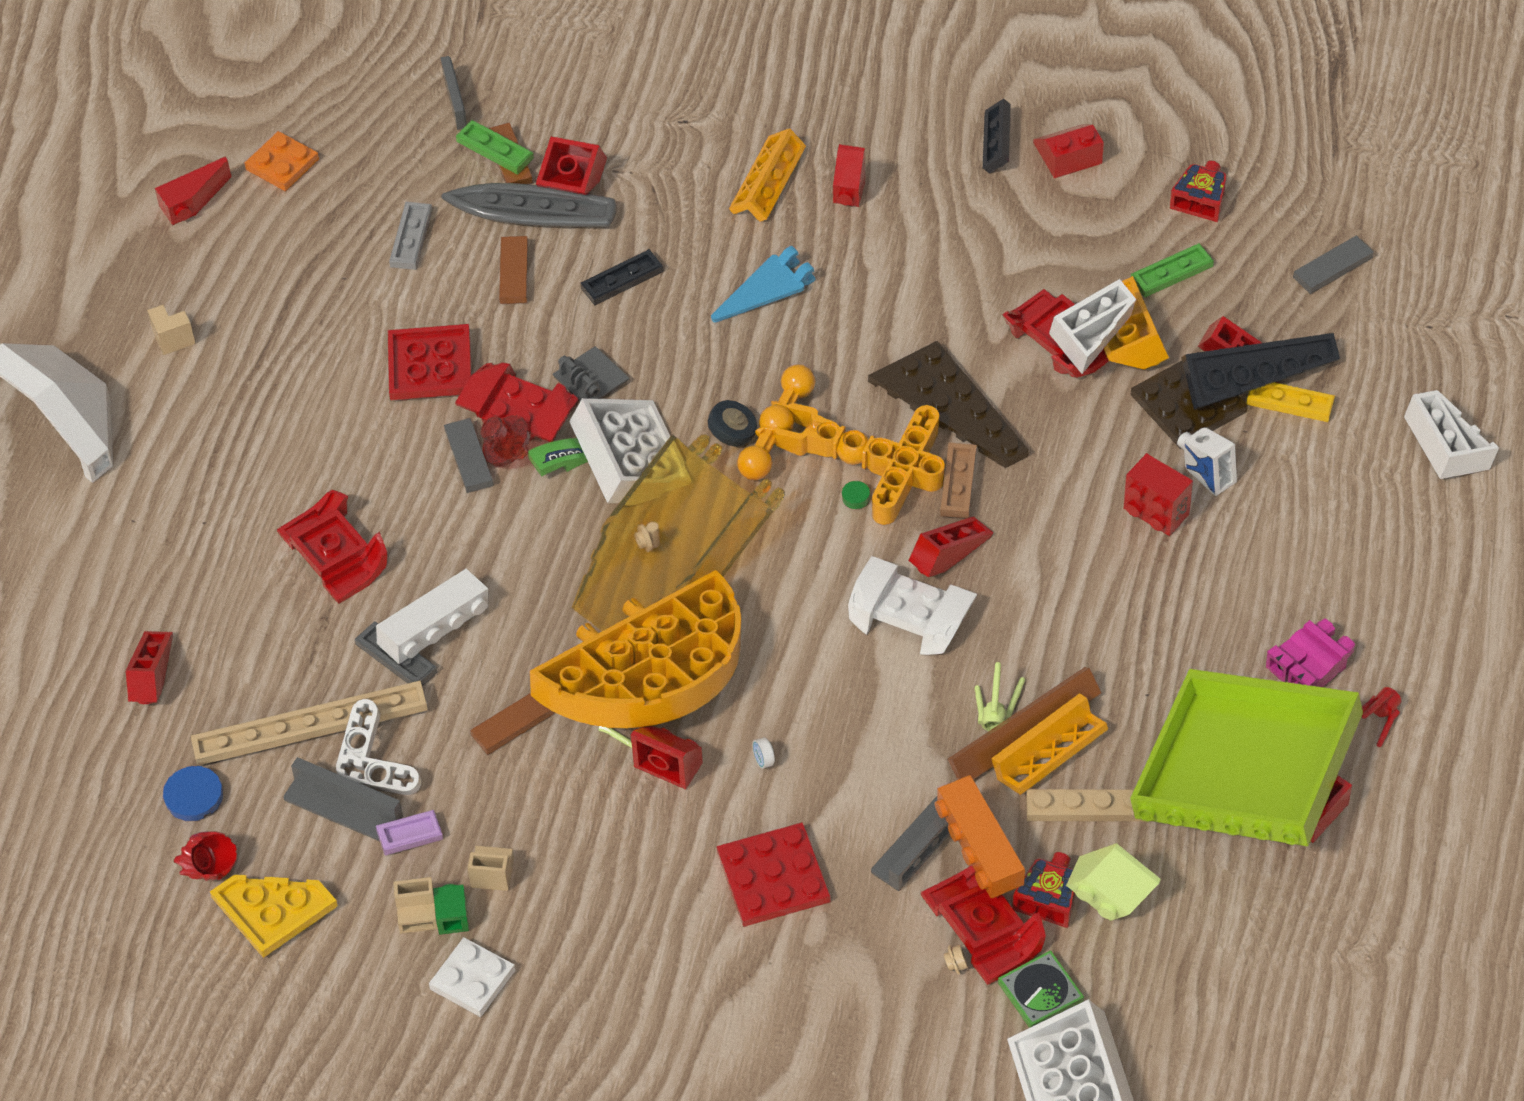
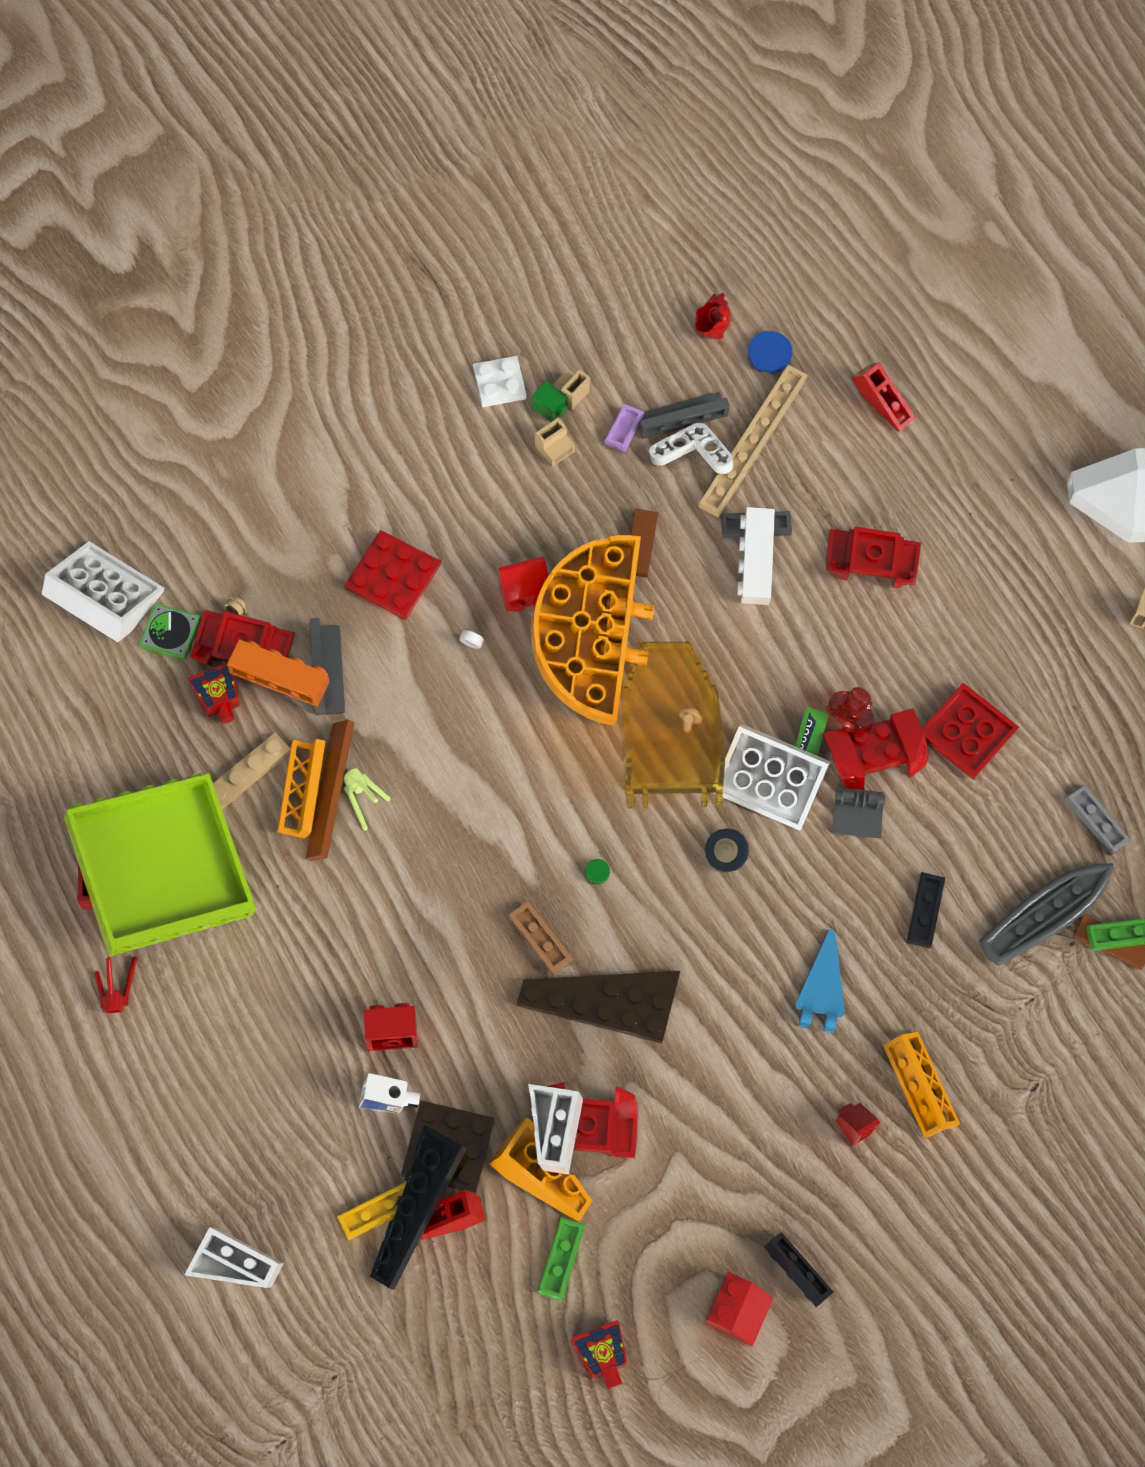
camera: 130 degrees right, 15 degrees up
(272, 908) = (648, 325): yellow plate -> none
(468, 455) = (881, 694): dark grey tile -> none
(513, 269) = (1001, 851): dark orange tile -> none
(571, 166) = (1053, 959): red slope -> none
(899, 463) = (697, 874): light orange piece -> none
(908, 605) = (481, 815): white piece -> none
(947, 545) = (497, 882): red slope -> none
(1111, 881) = (177, 713): yellowish green slope -> none
(1310, 655) = (188, 1001): dark pink hips -> none
(1333, 264) = (449, 1371): dark grey tile -> none

